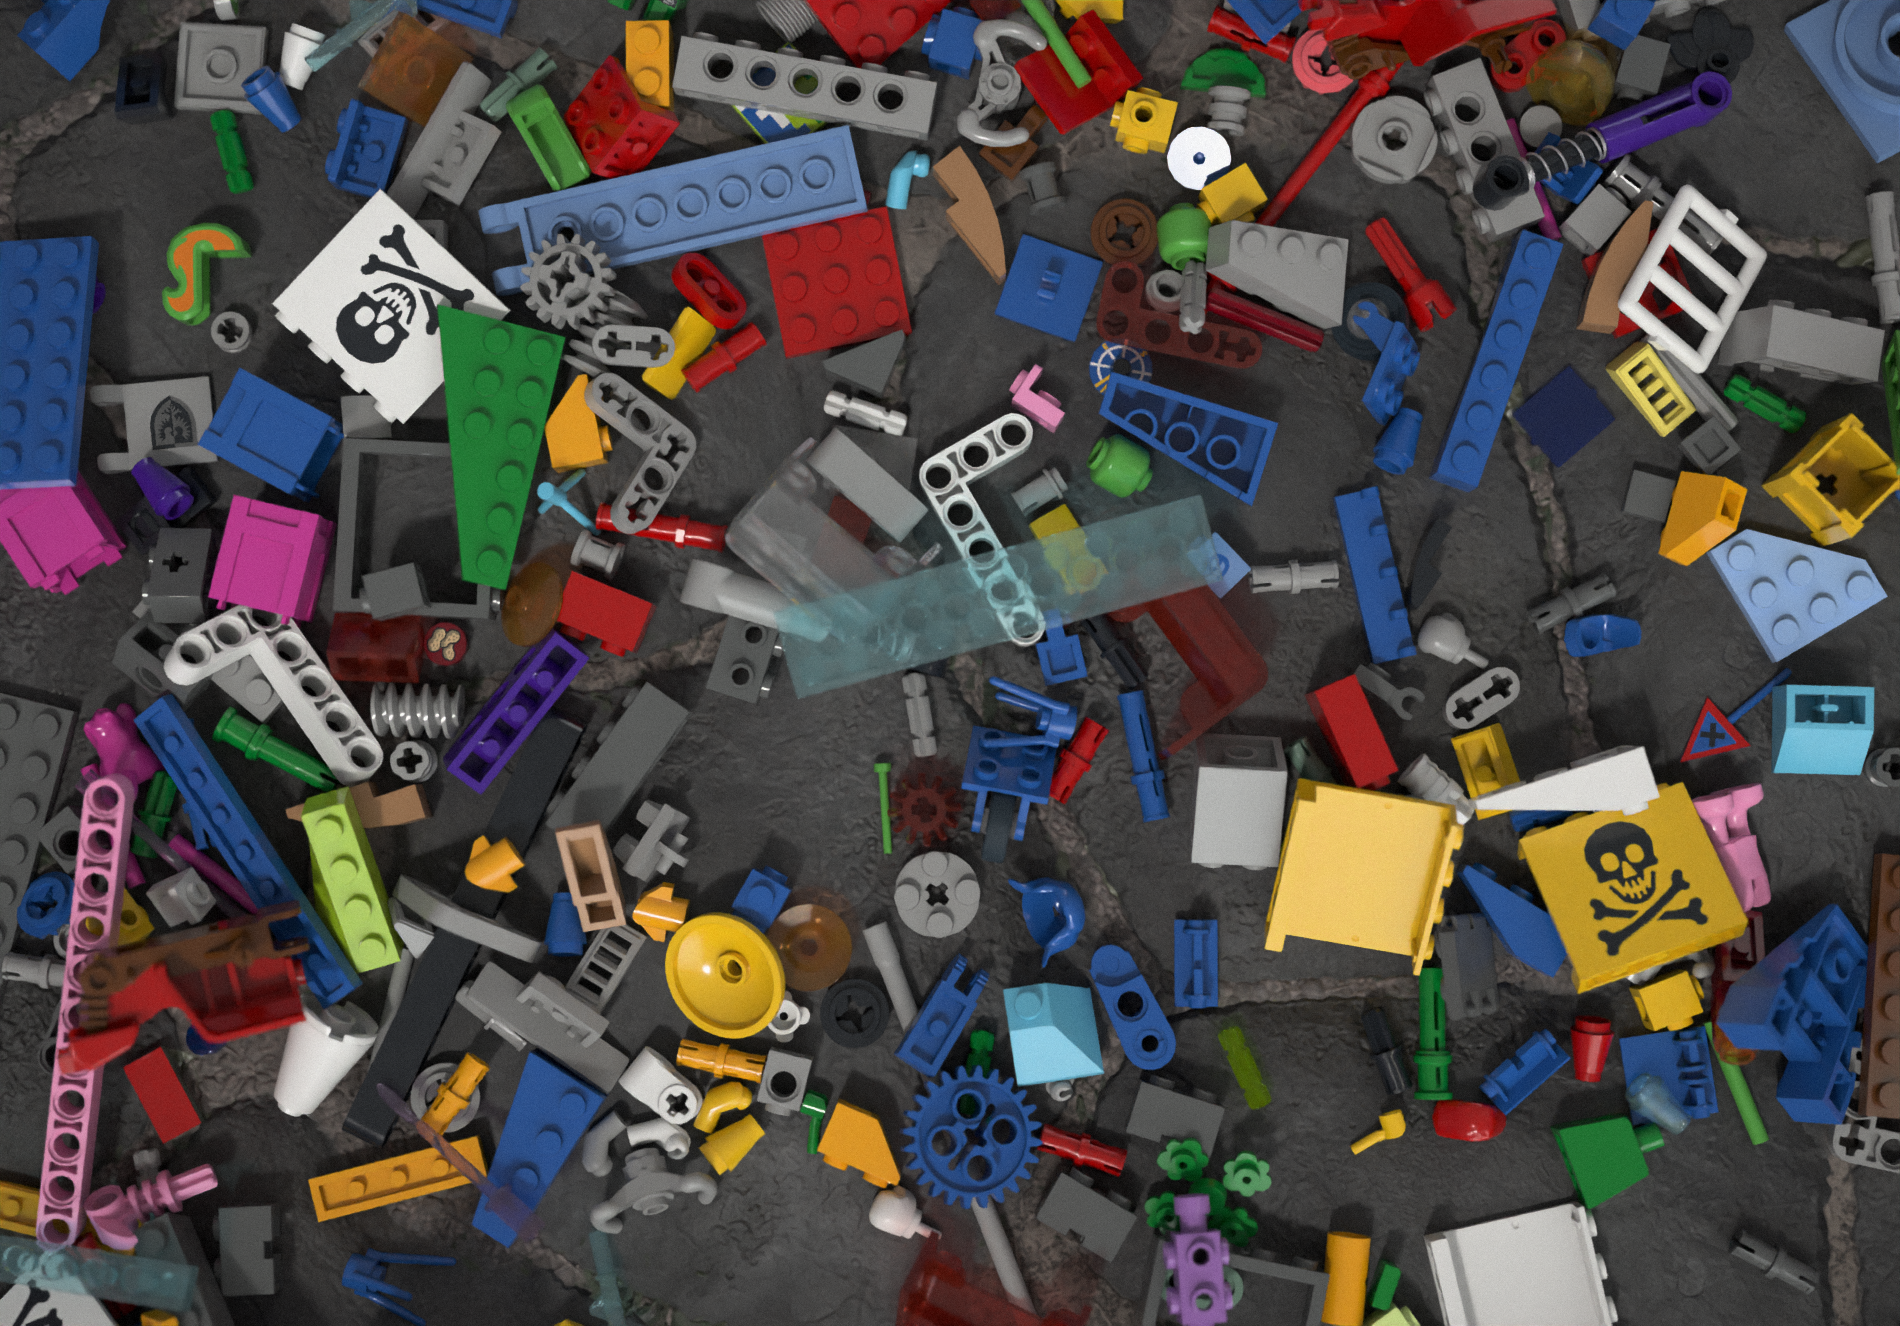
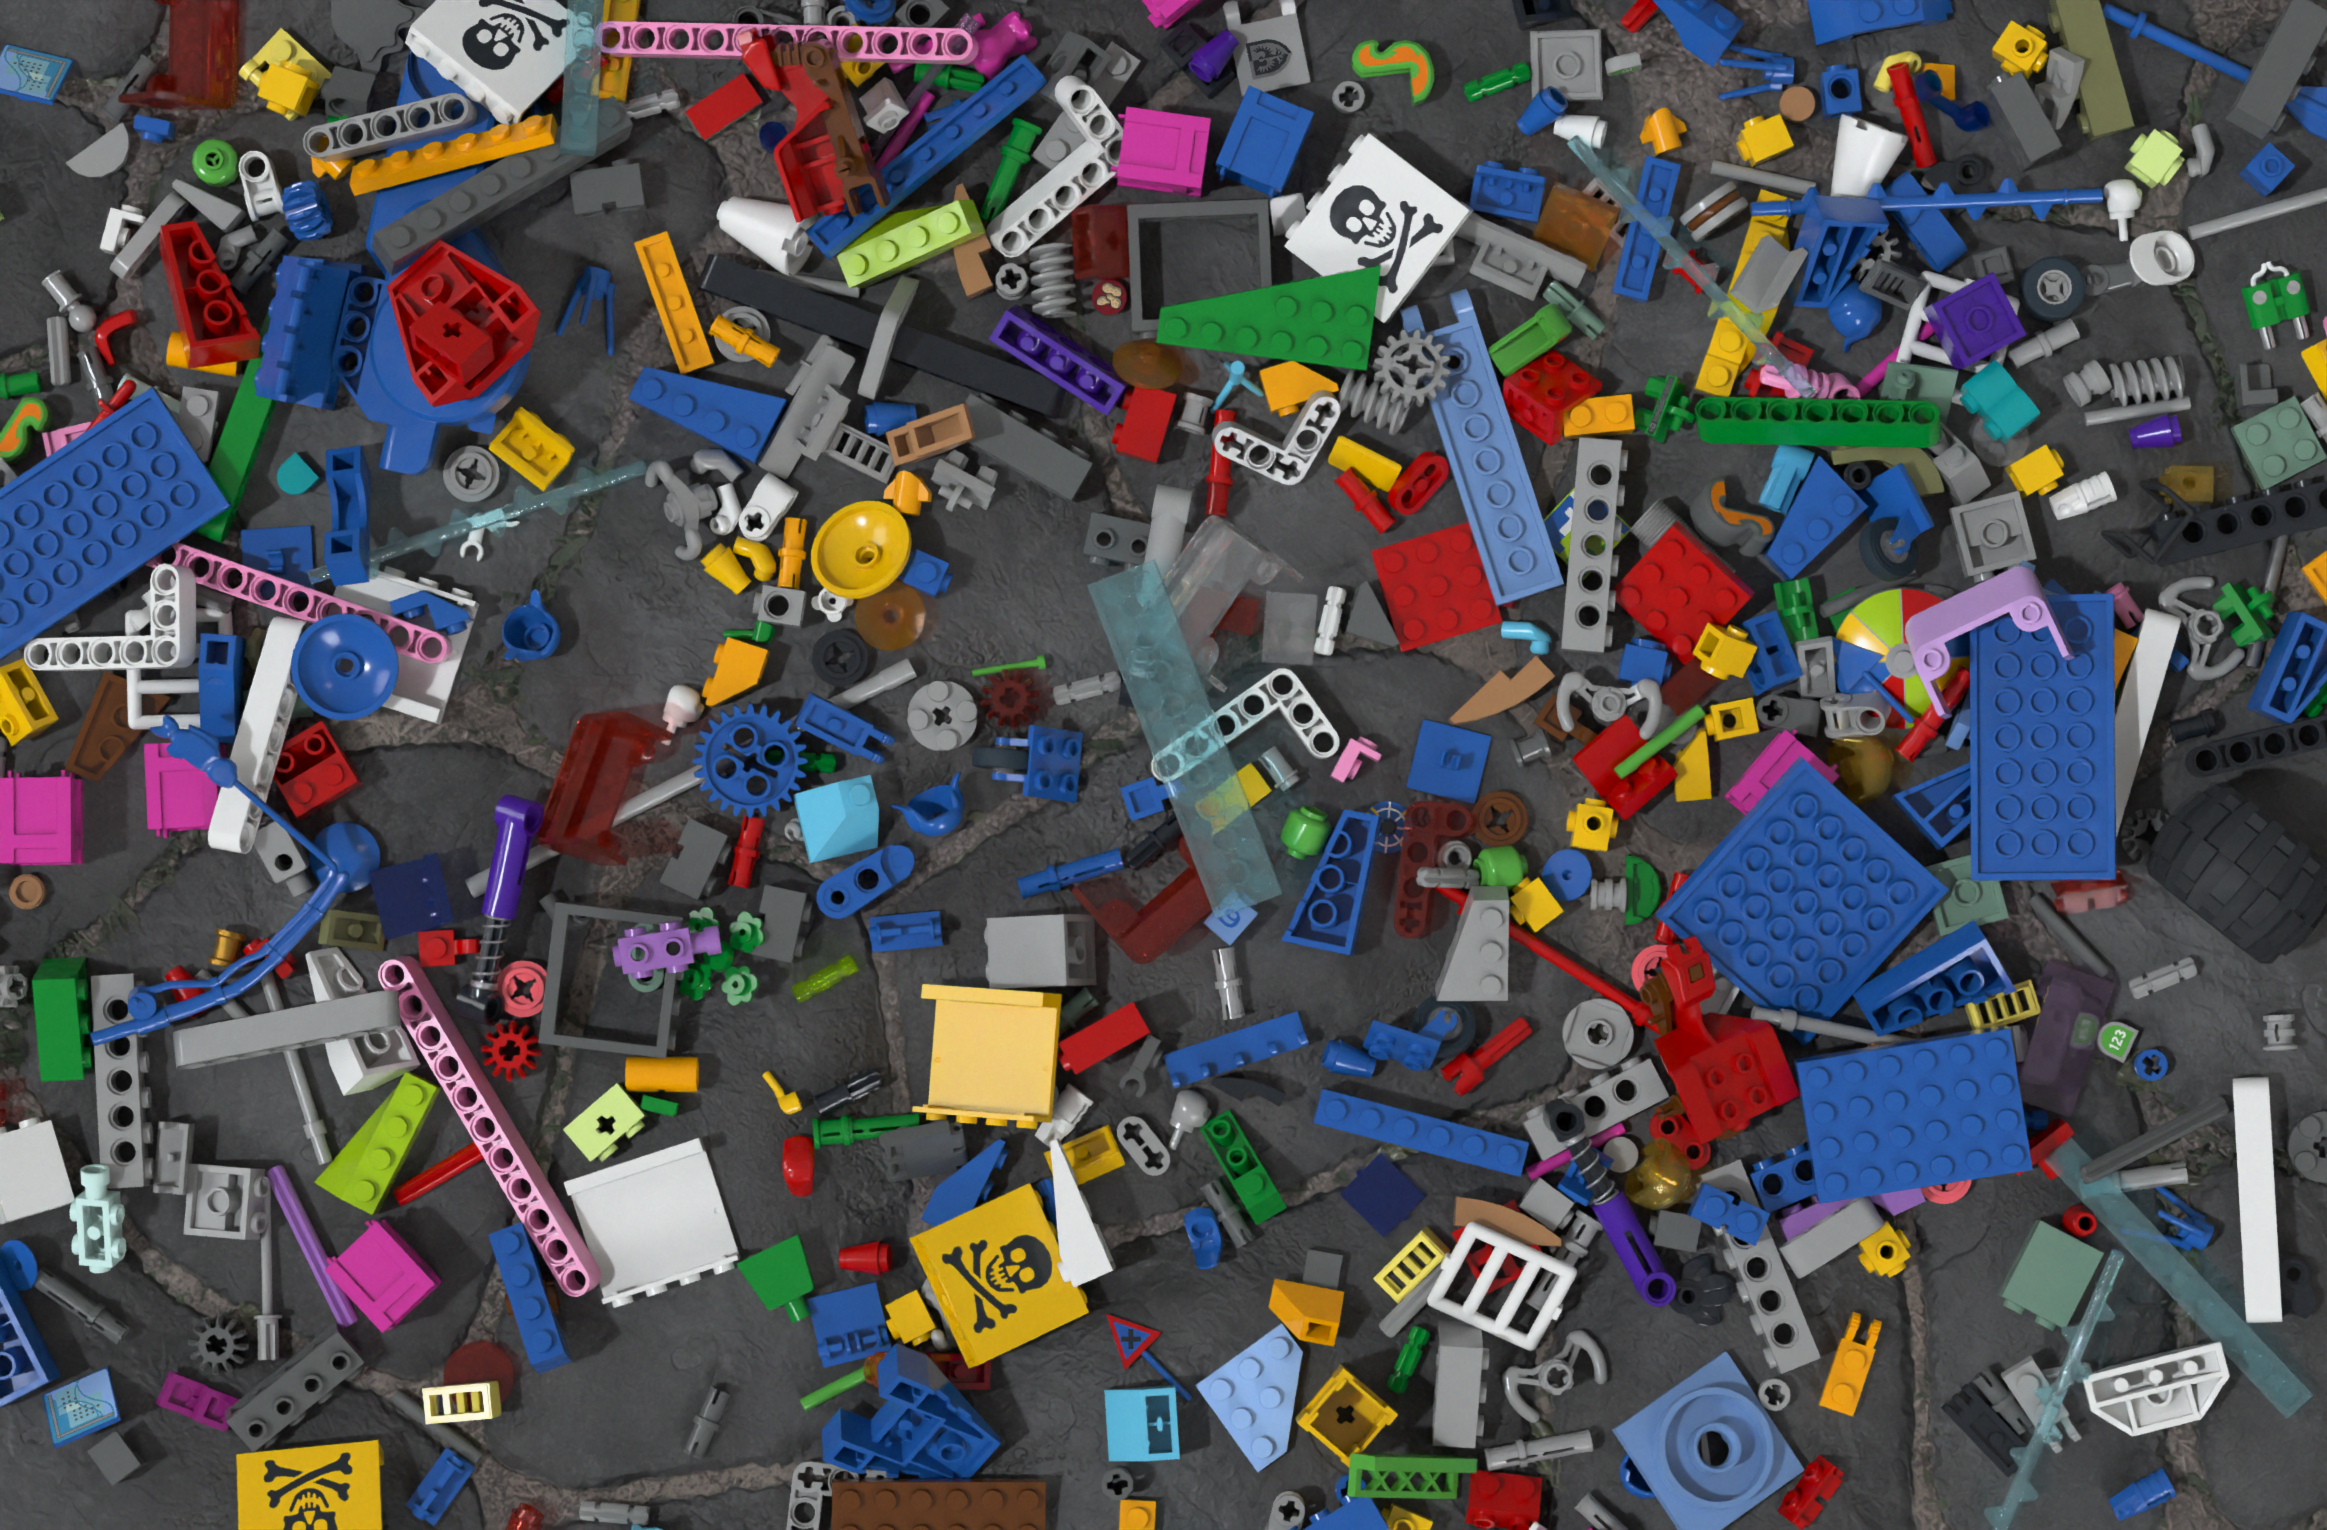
camera: 80 degrees right, 0 degrees up
(117, 1215) = (626, 82): bright pink piece -> none
(181, 575) = (1144, 80): dark grey brick -> none
(394, 592) = (1145, 254): dark grey brick -> none
(412, 927) = (877, 294): light grey slope -> none
(492, 865) = (933, 355): light orange piece -> none
(501, 1200) = (666, 388): clear purple piece -> none
(634, 335) = (1372, 426): light grey beam -> none
(867, 485) = (1268, 626): light grey beam -> none
(1053, 717) = (1093, 796): blue plant -> none
(1076, 759) = (1062, 818): red pin -> none
(1264, 319) = (1437, 939): dark red axle -> none
(1517, 580) = (1242, 1167): none -> green slope
(1524, 1072) = (850, 1213): blue hinge -> none
(1656, 1102) = (827, 1313): clear light blue cone -> none
(1709, 446) = (1366, 1313): dark grey tile -> none
(1727, 827) = (1031, 1363): bright pink piece -> none
(1796, 230) = (1554, 1373): none -> light grey piece

